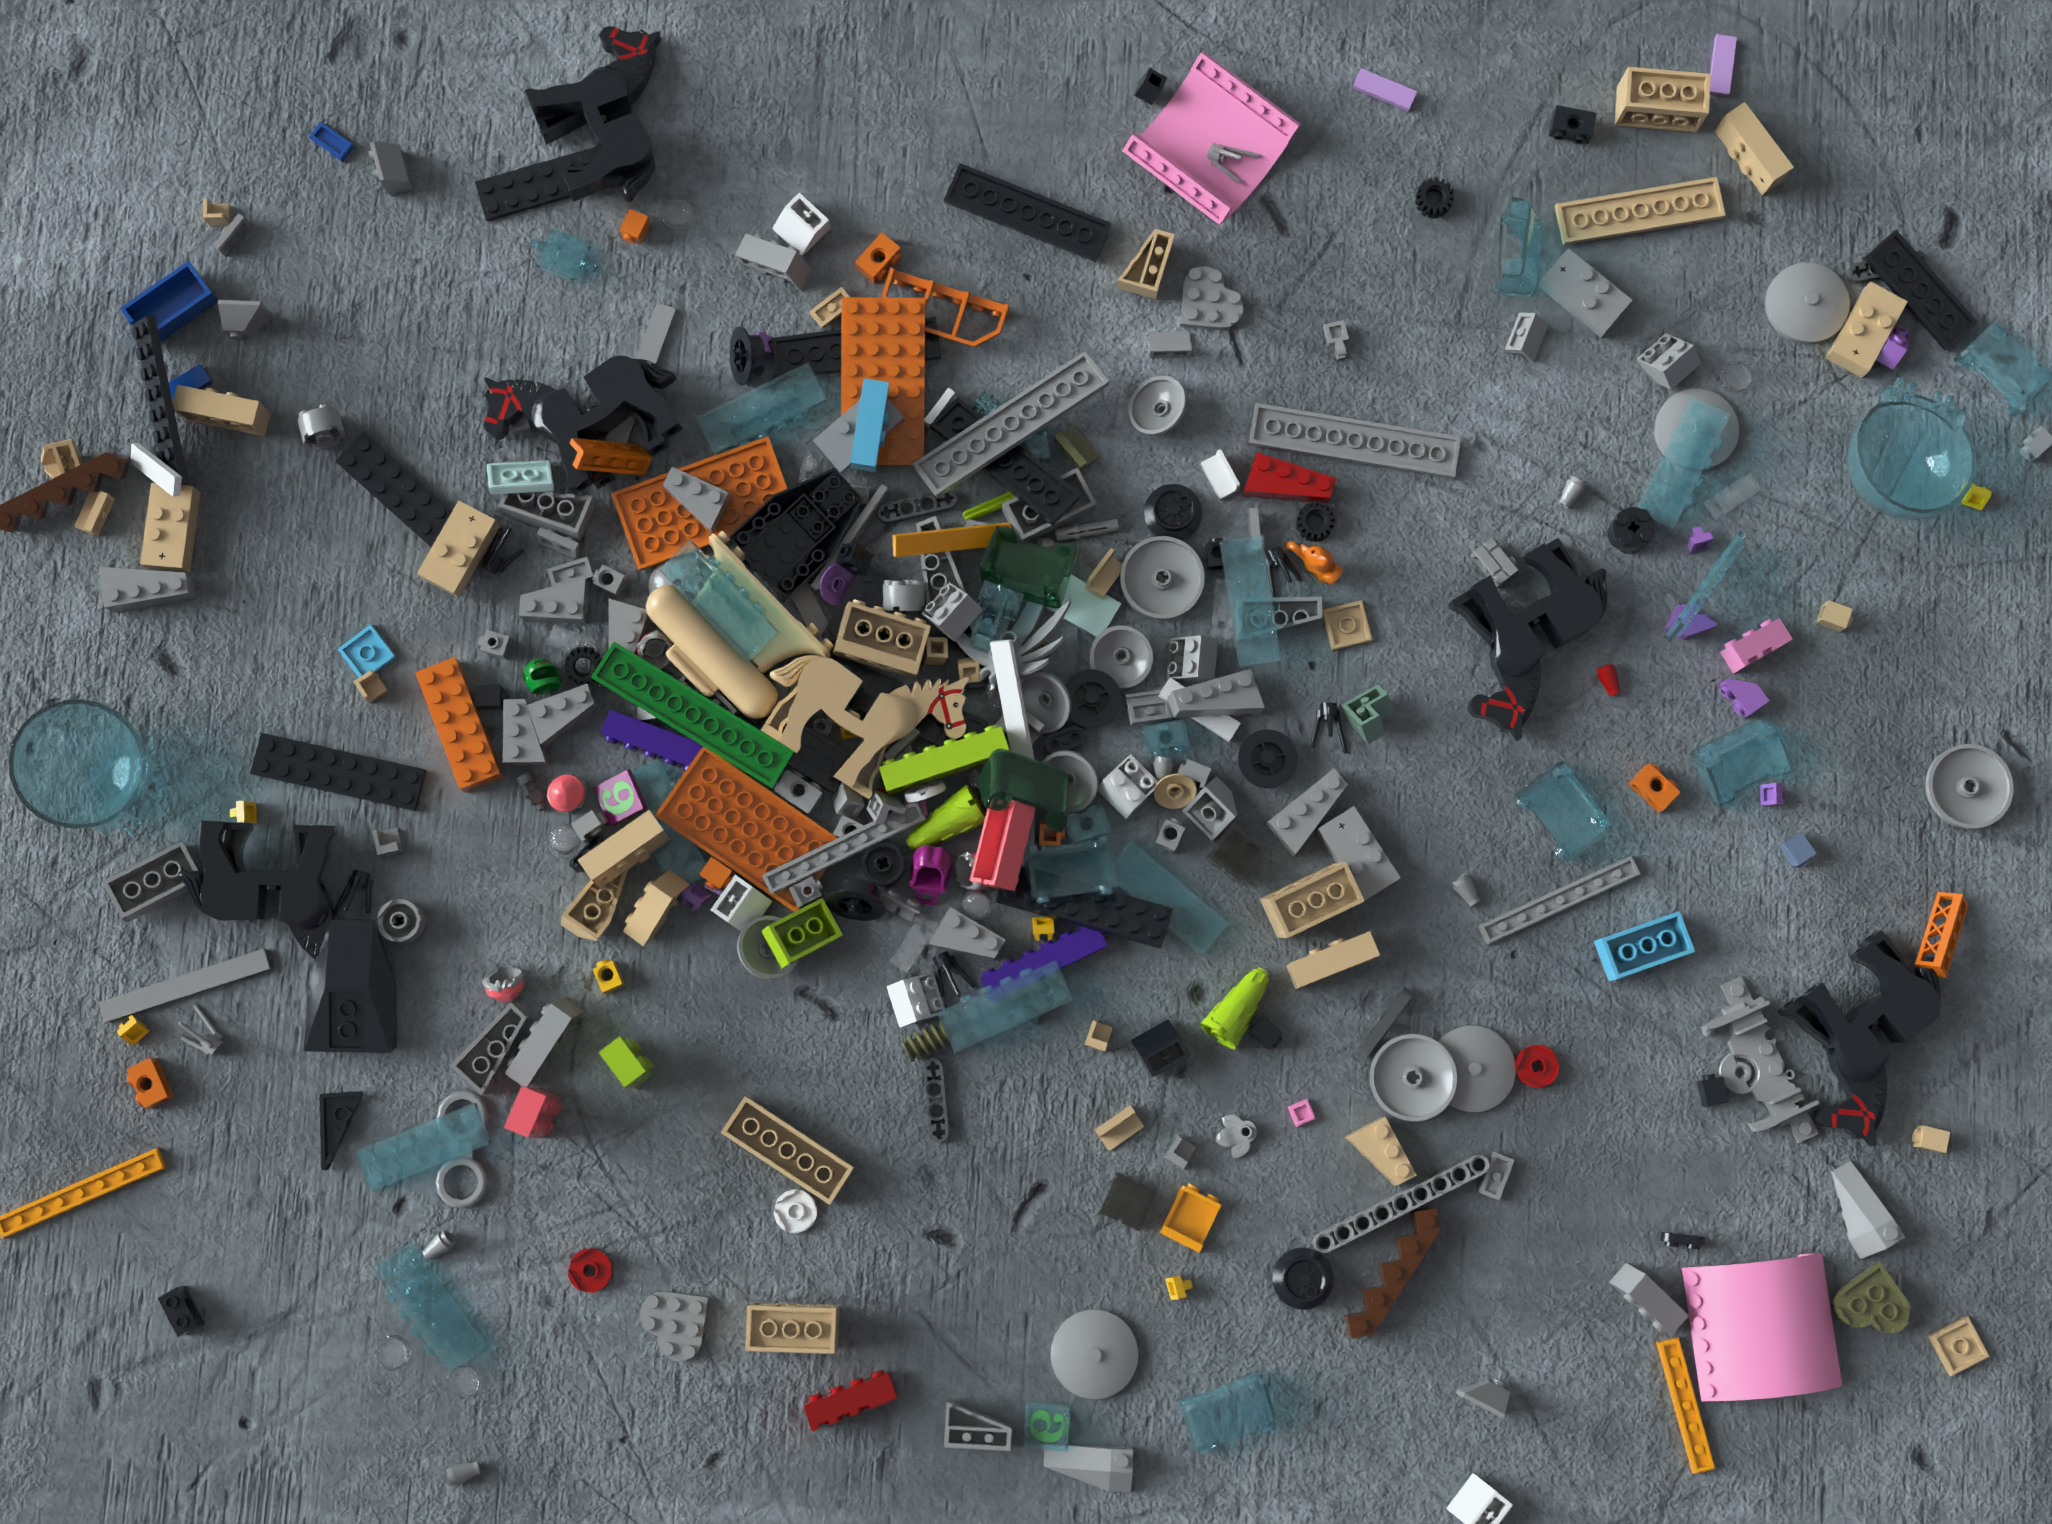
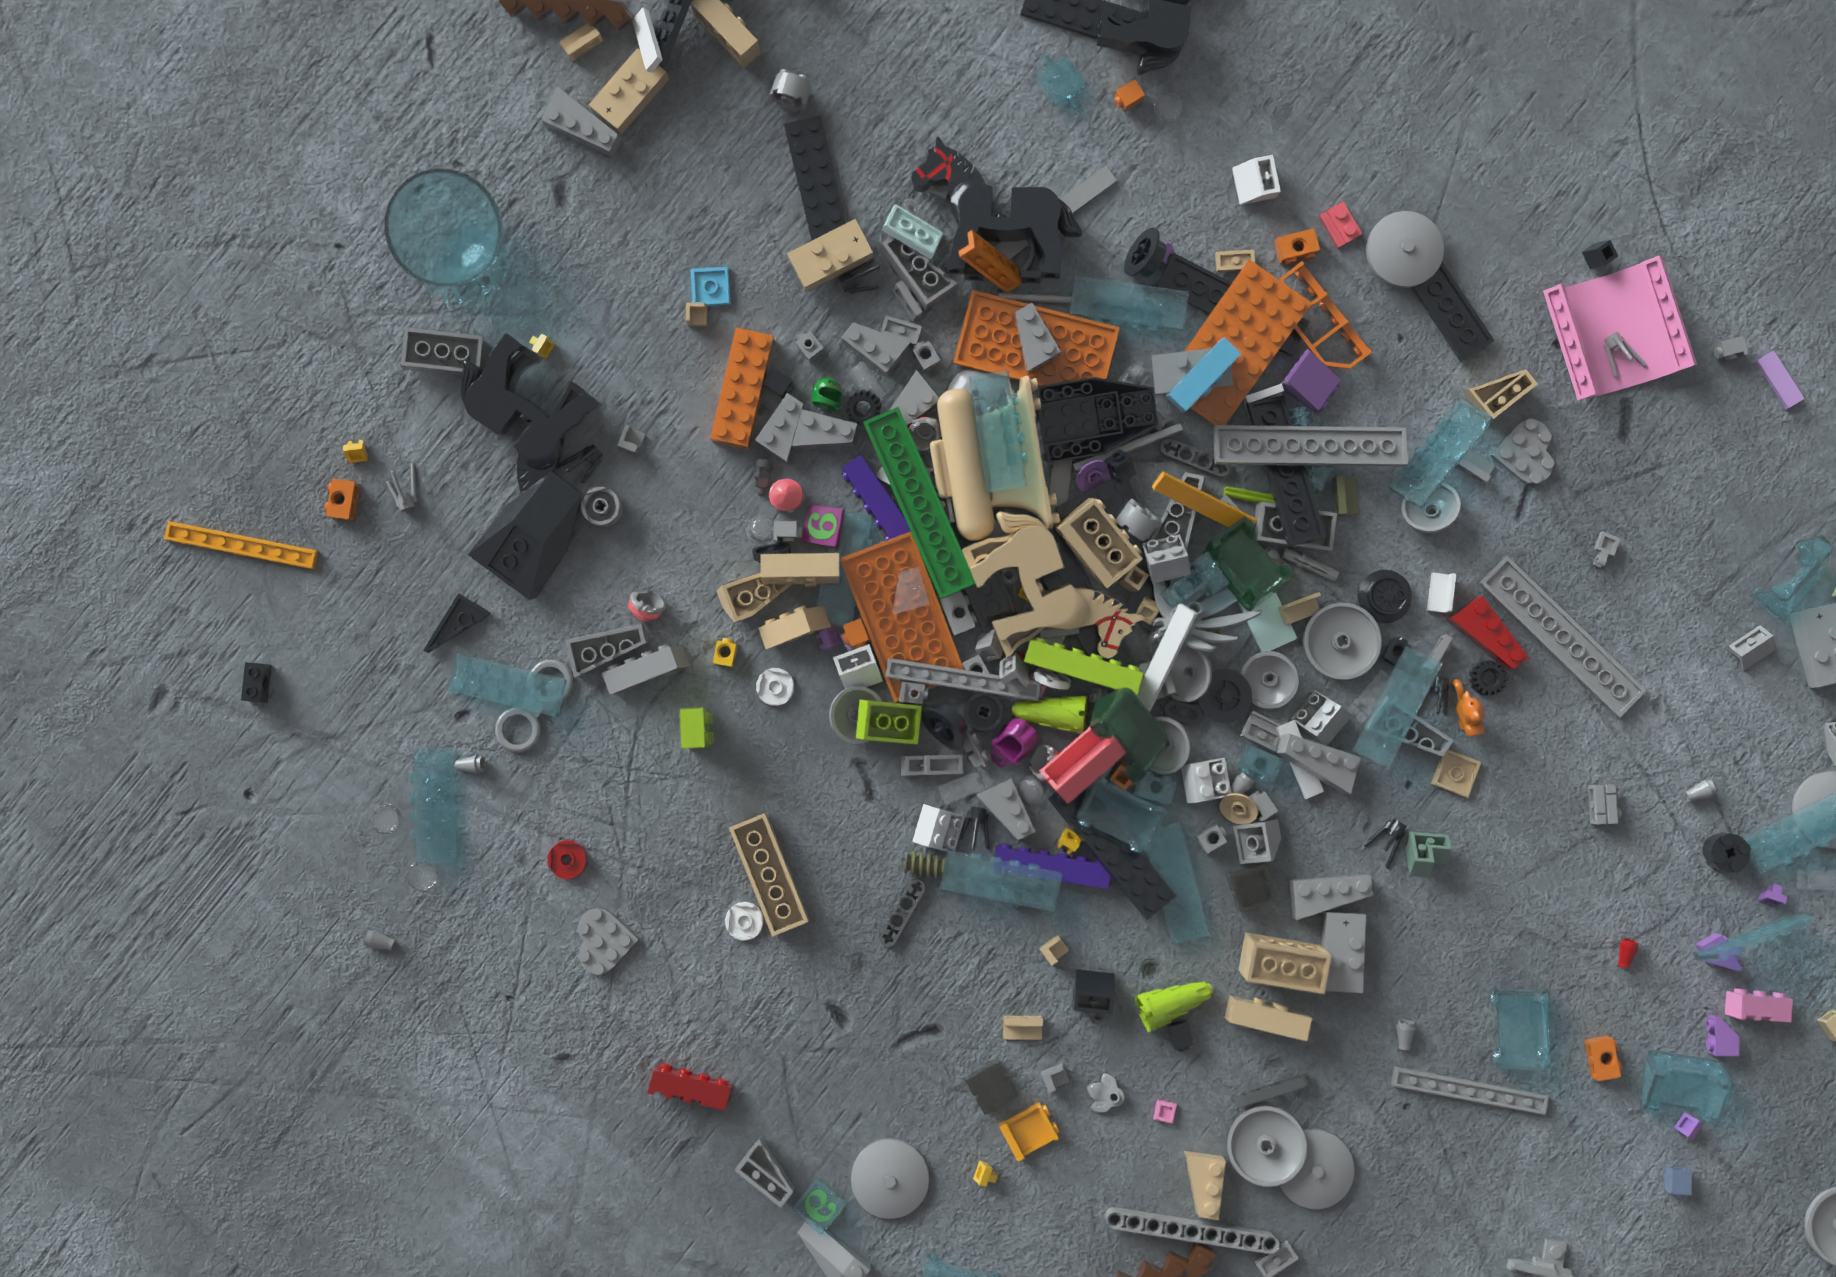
camera: 40 degrees right, 5 degrees up
(184, 985) = (415, 444): light grey tile -> none
(338, 772) = (630, 362): black plate -> none
(533, 1112) = (603, 718): coral brick -> none
(676, 460) = (1037, 298): none -> light grey bar
(676, 975) = (775, 686): none -> white tile
(739, 800) = (909, 591): none -> clear slope
(773, 259) = (1217, 193): light grey wedge -> none
(792, 1327) = (684, 1007): tan brick -> none
(869, 946) = (931, 765): none -> light grey slope
(904, 214) = (1340, 225): none -> coral plate
(973, 368) = (1310, 382): none -> medium lavender slope
(975, 197) = (1405, 249): none -> light grey dish
(1132, 353) = (1440, 453): none -> clear light blue plate
(1267, 759) = (1325, 833): black wheel -> none
(1302, 1278) = (1080, 1233): black wheel -> none
(1323, 91) = (1731, 349): none -> light grey brick
(1440, 187) = (1750, 499): black tyre -> none
(1513, 646) = (1573, 876): black animal -> none
(1542, 1077) = (1360, 1212): red plate -> none
(1644, 946) = (1509, 1171): medium azure brick -> none

